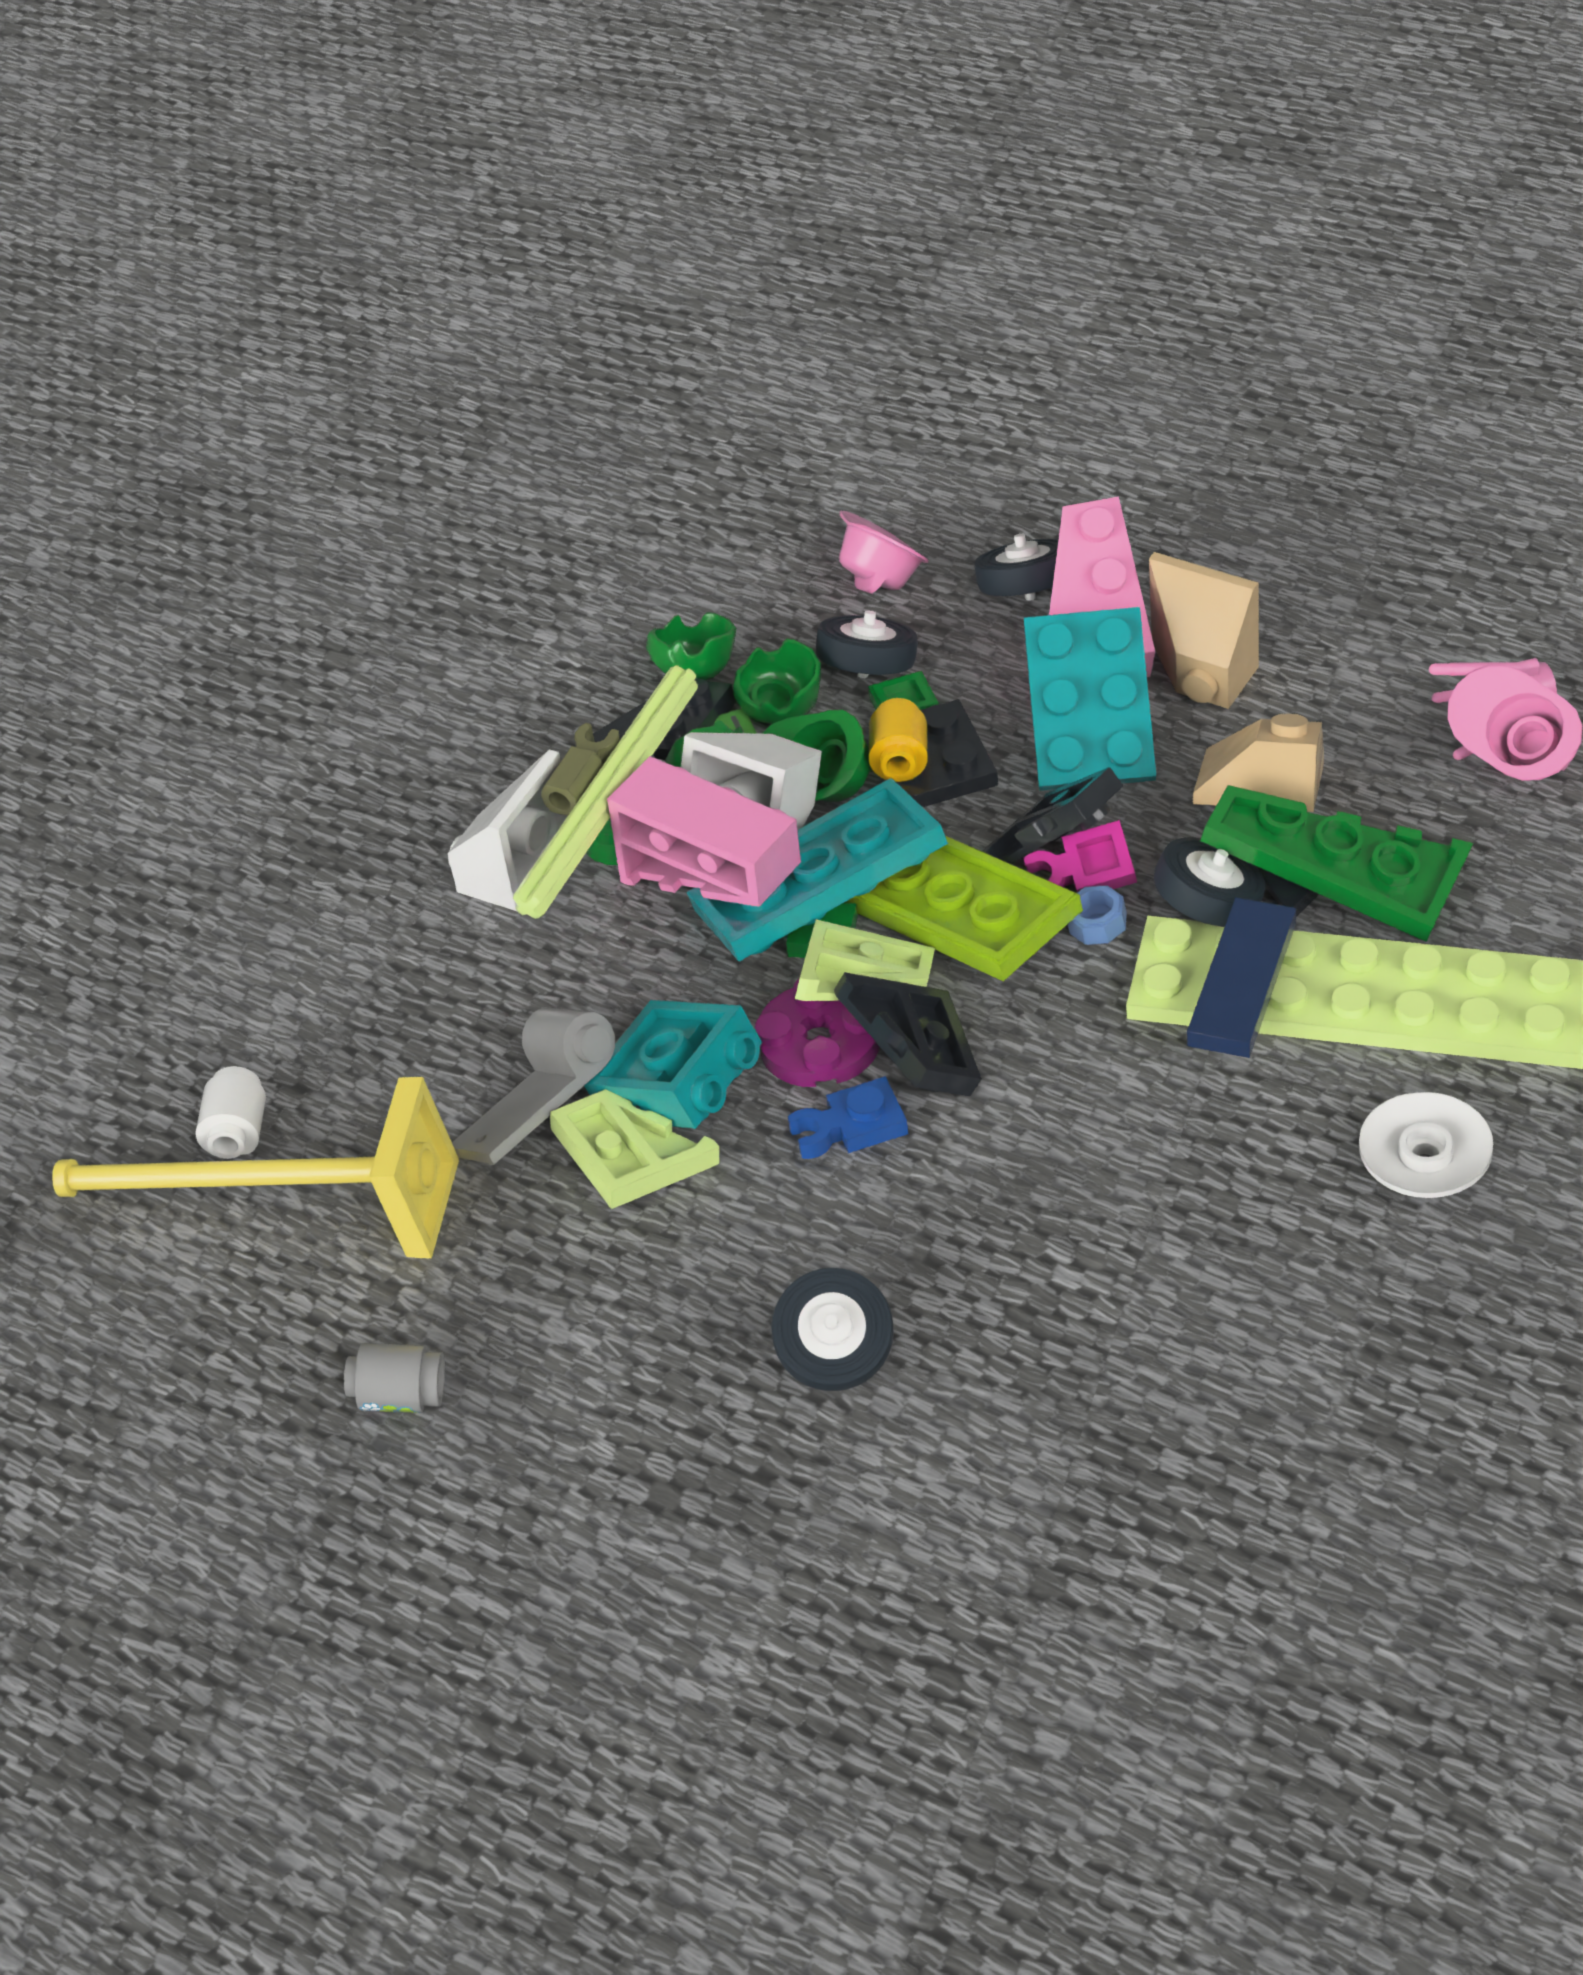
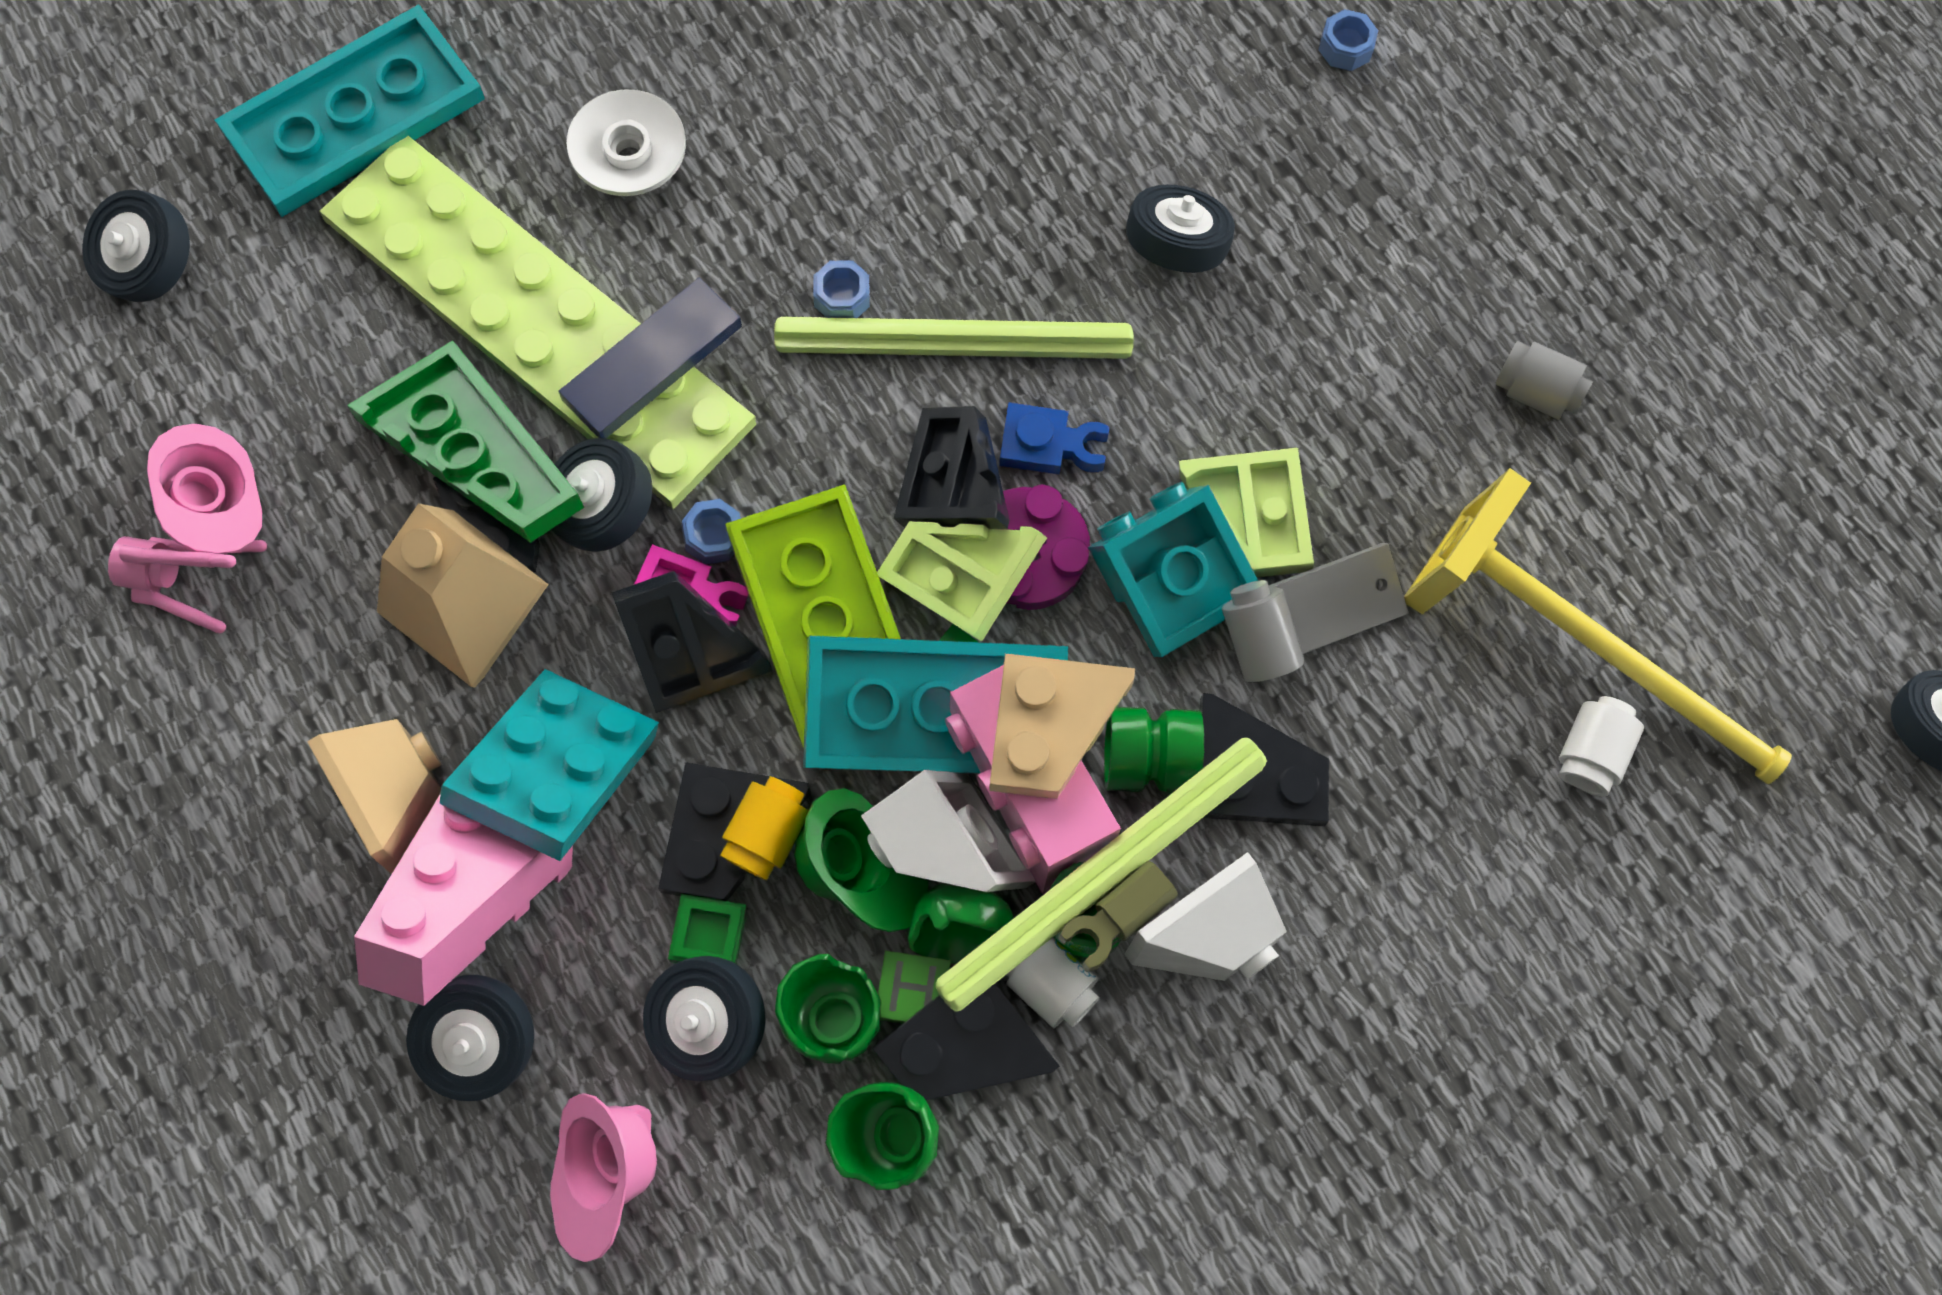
camera: 165 degrees left, 25 degrees up
(526, 976) = (1290, 786): none -> black wing
(621, 929) = (1150, 749): none -> green wheel
(701, 826) = (1050, 720): none -> tan wing
(762, 1626) = (1348, 40): none -> medium blue tile
(992, 1154) = (953, 337): none -> yellowish green axle
(1126, 1135) = (841, 290): none -> medium blue tile

